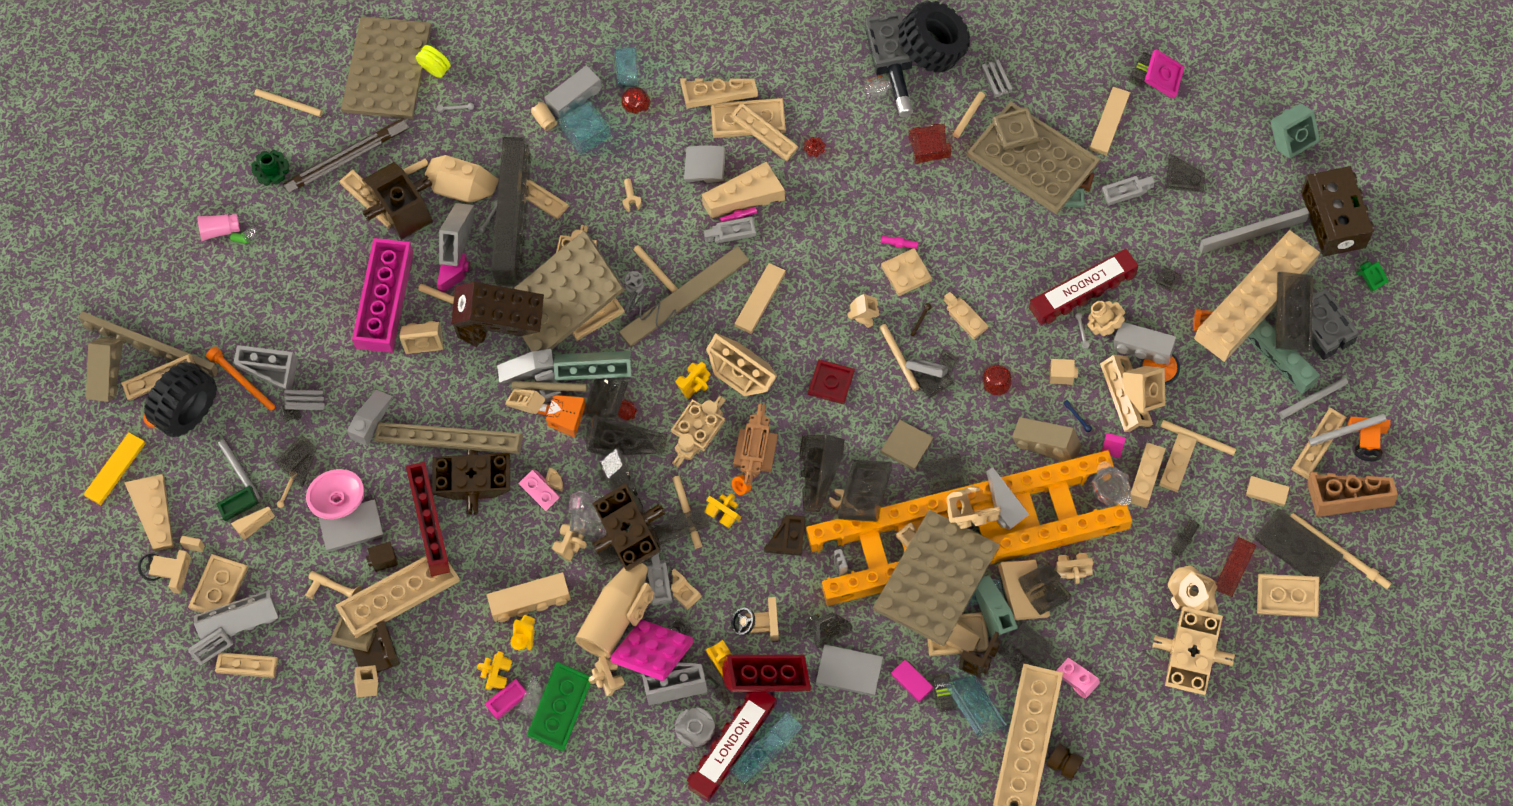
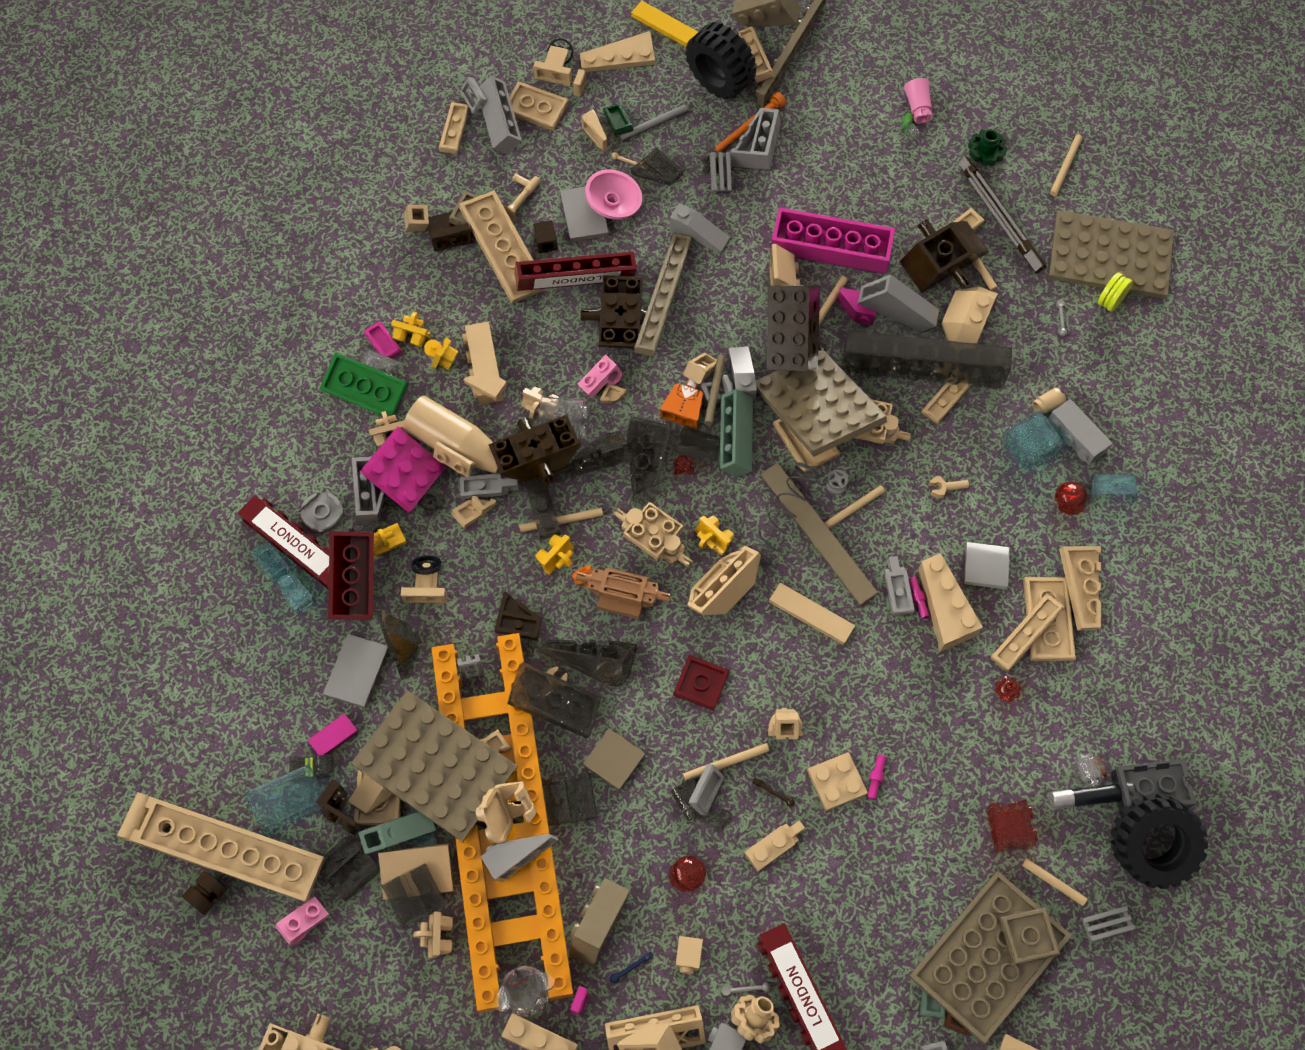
camera: 90 degrees right, 0 degrees up
(558, 583) = (487, 384): none -> tan tile

